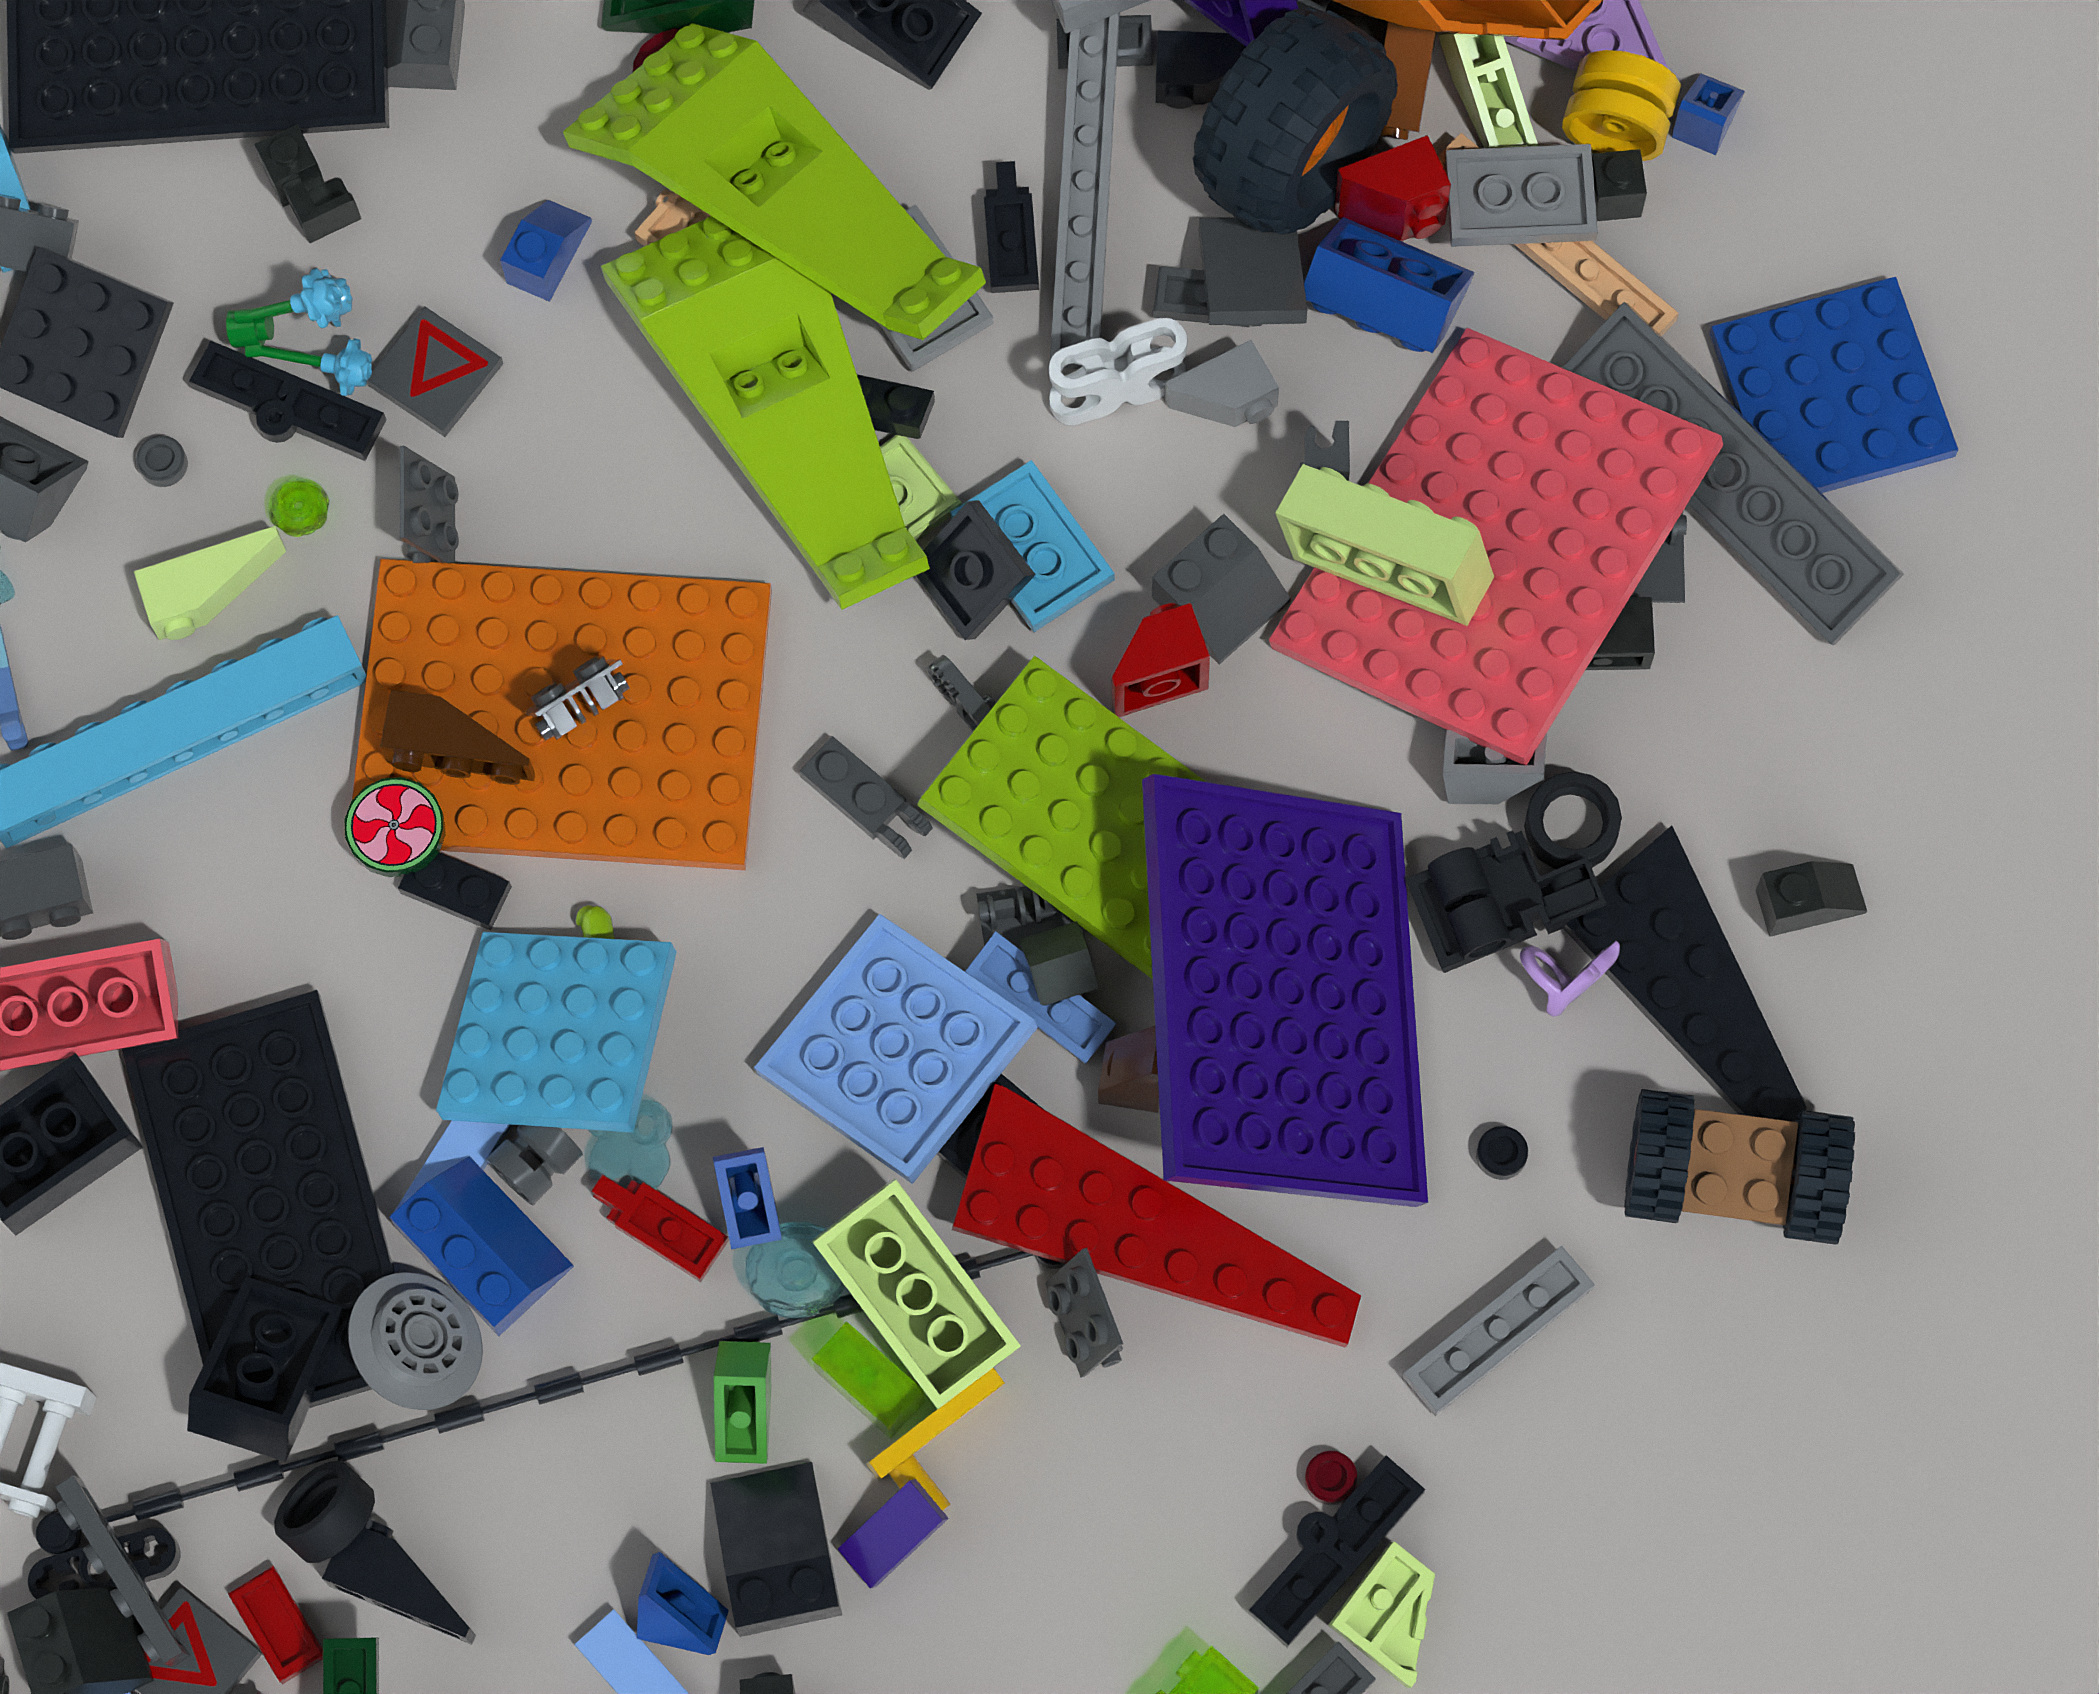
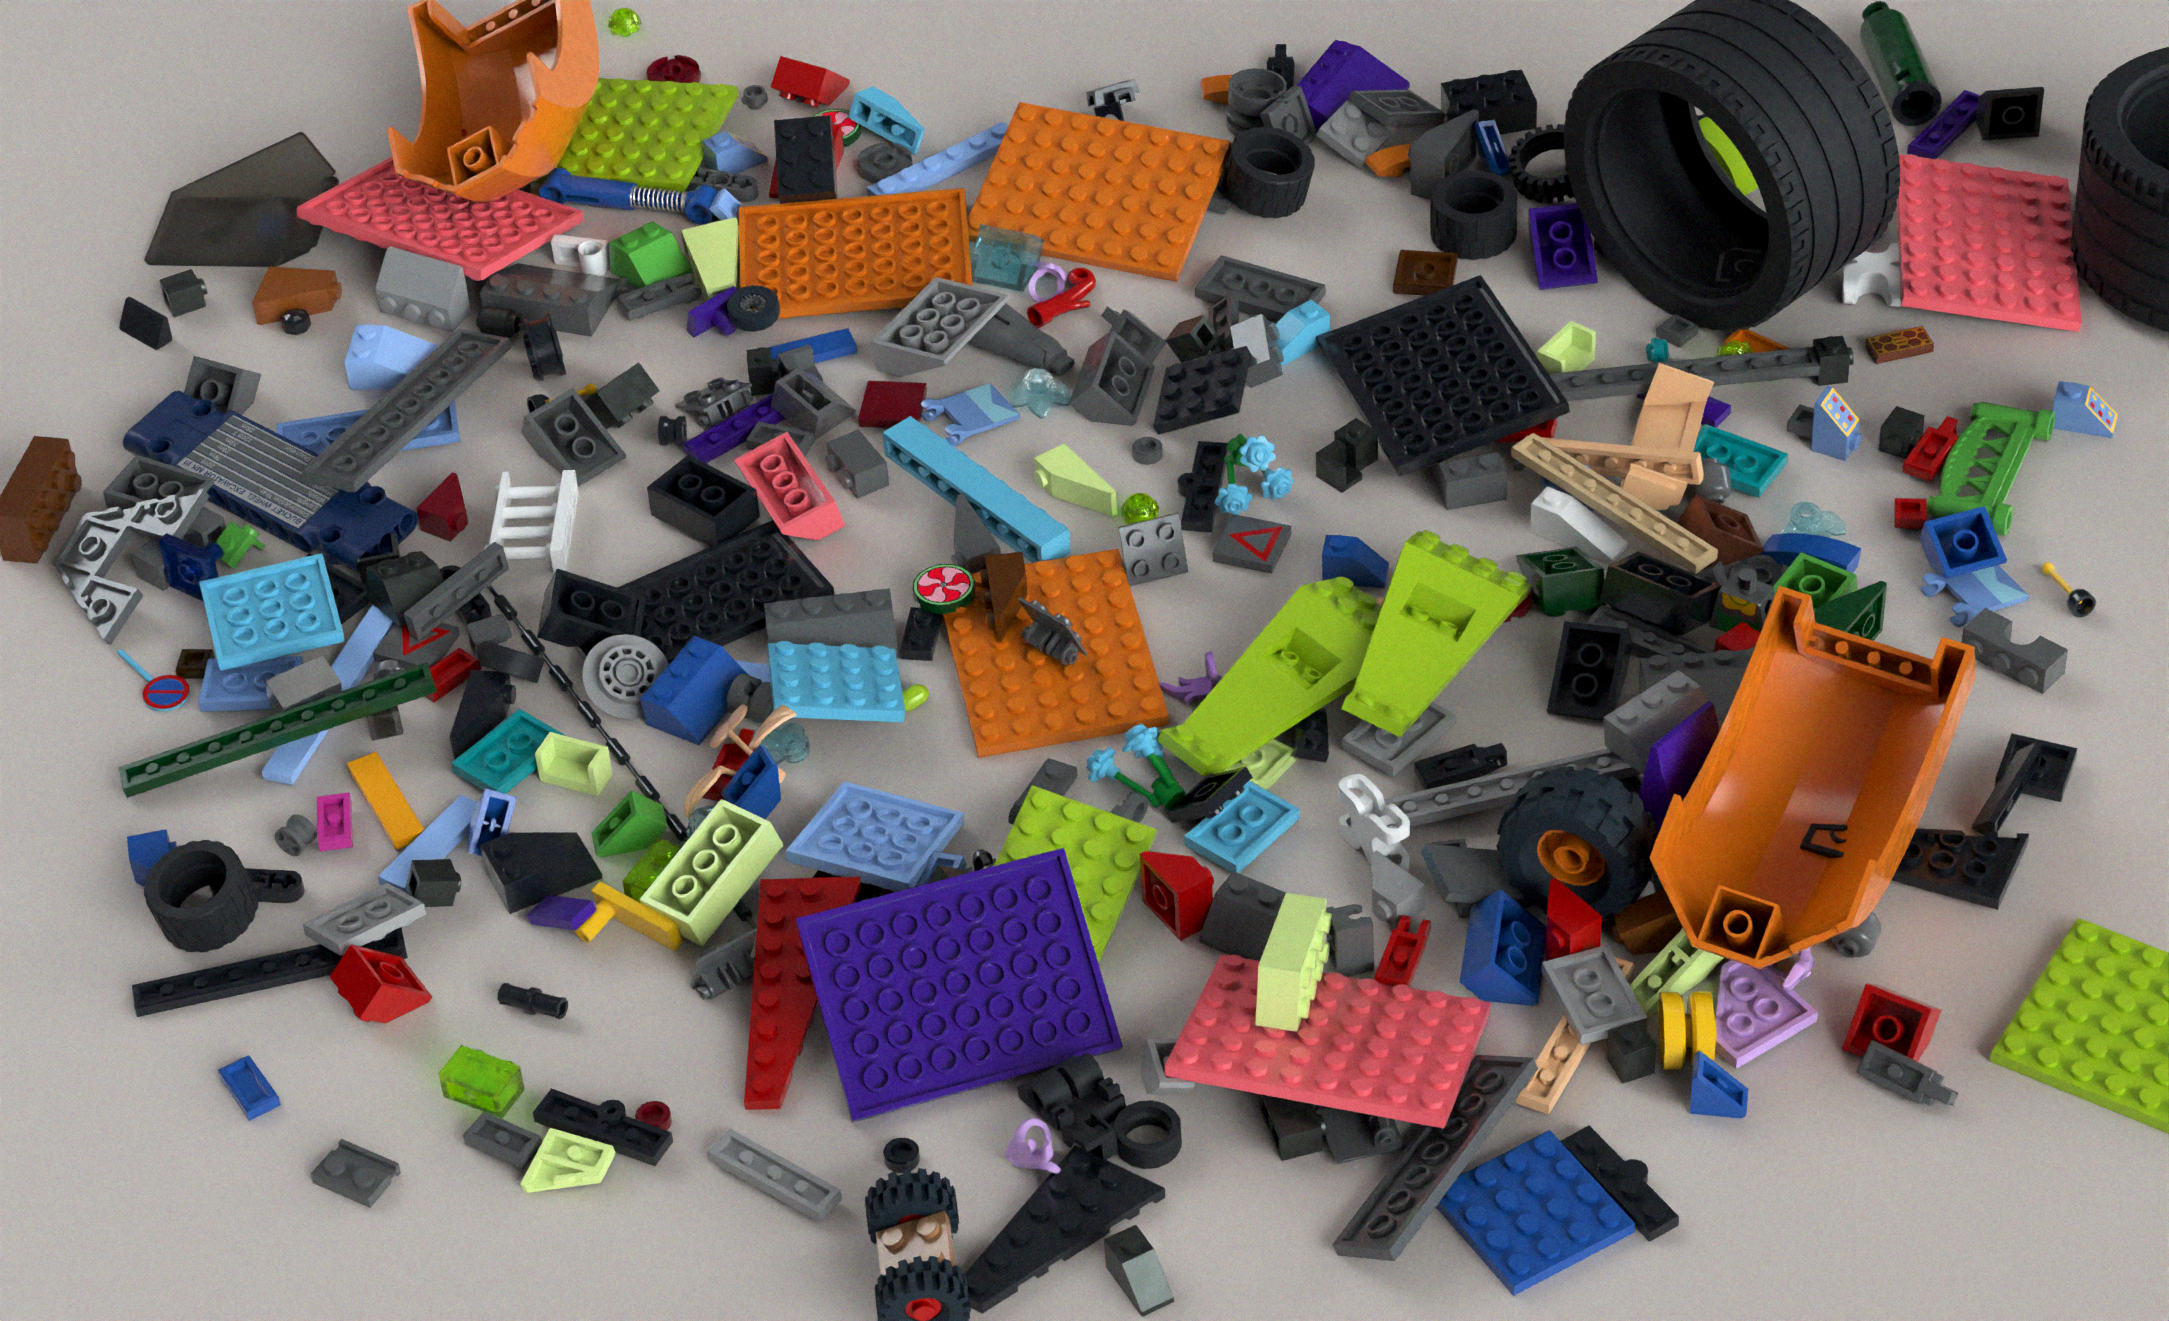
camera: 75 degrees right, 30 degrees down
(235, 1539) = (487, 630): none -> dark grey panel
(293, 764) = (971, 538): none -> dark grey slope
(410, 1013) = (834, 620): none -> dark grey slope
(508, 1555) = (504, 754): none -> teal plate
(576, 1458) = (573, 764): none -> yellowish green panel
(685, 1136) = (776, 718): none -> light nougat plant
(721, 520) = (1195, 688): none -> medium lavender piece
(869, 629) = (1143, 743): none -> plant
(1054, 1608) = (532, 1001): none -> black pin
(1372, 423) = (1403, 953): none -> red hinge
(1816, 270) = (1624, 1182): none -> black hinge

